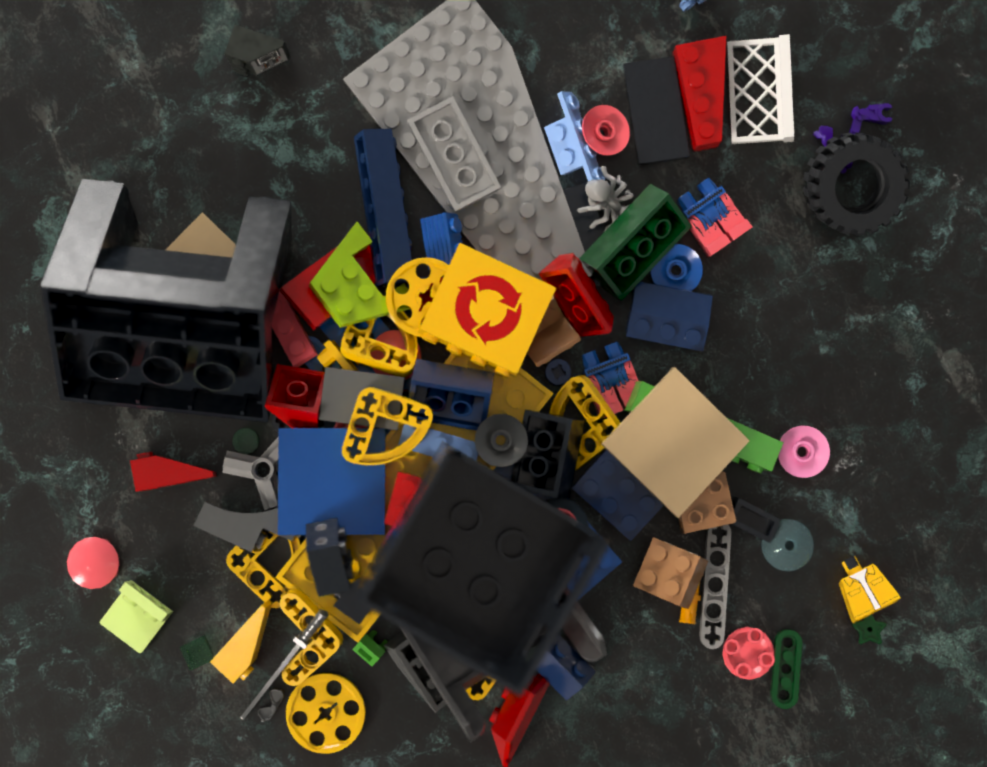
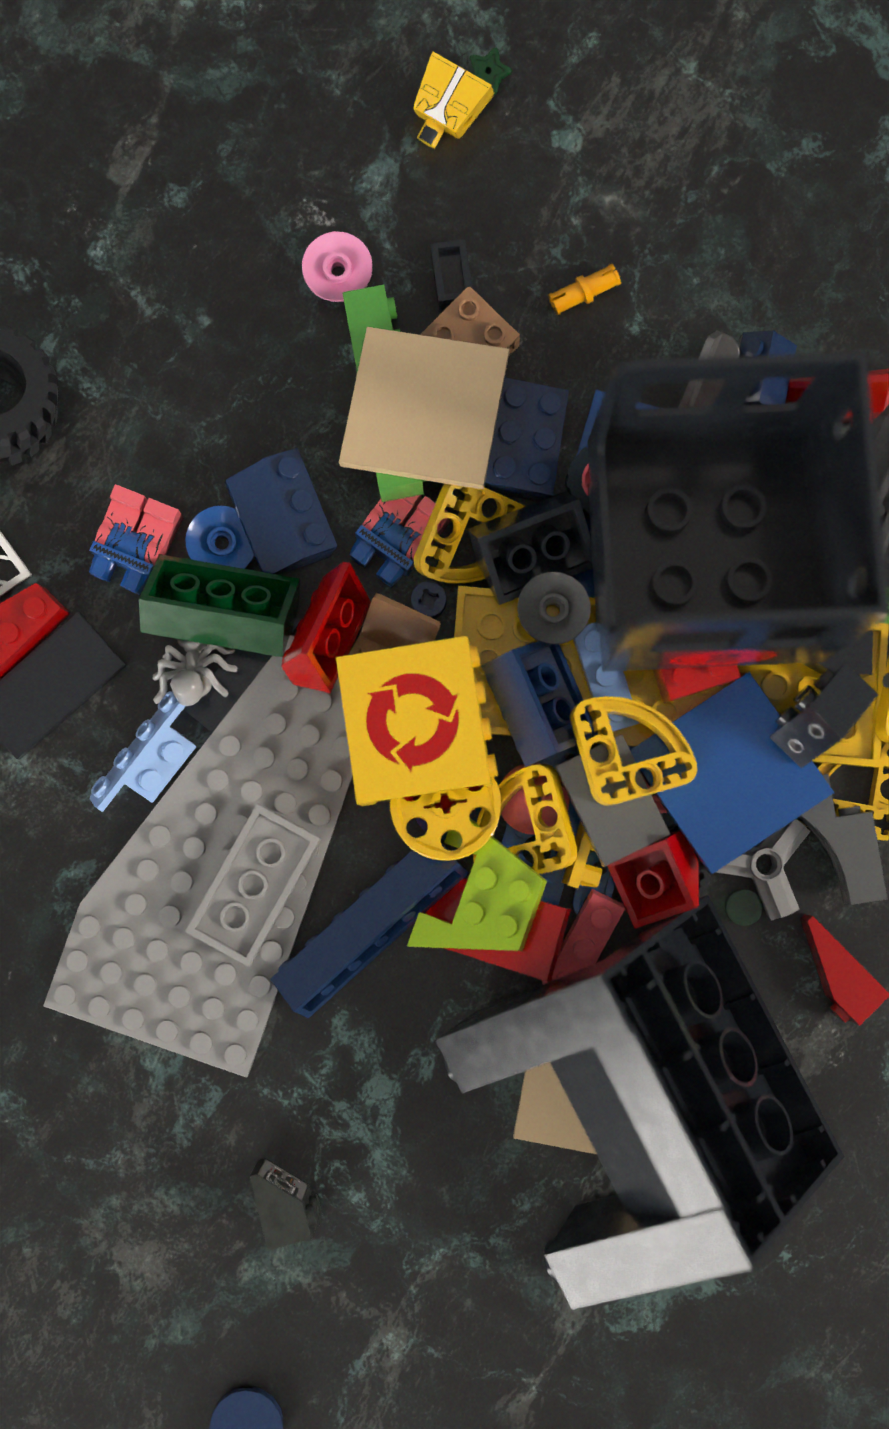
camera: 115 degrees left, 0 degrees up
(441, 236) = (361, 834): blue brick -> none
(614, 127) = (99, 721): coral dish -> none
(670, 573) = (574, 324): medium nougat piece -> none
(719, 597) = (563, 259): light grey beam -> none
(748, 653) = (603, 186): coral dish -> none
(779, 556) = (438, 228): clear light blue dish -> none
(786, 681) = (600, 122): dark green plate -> none

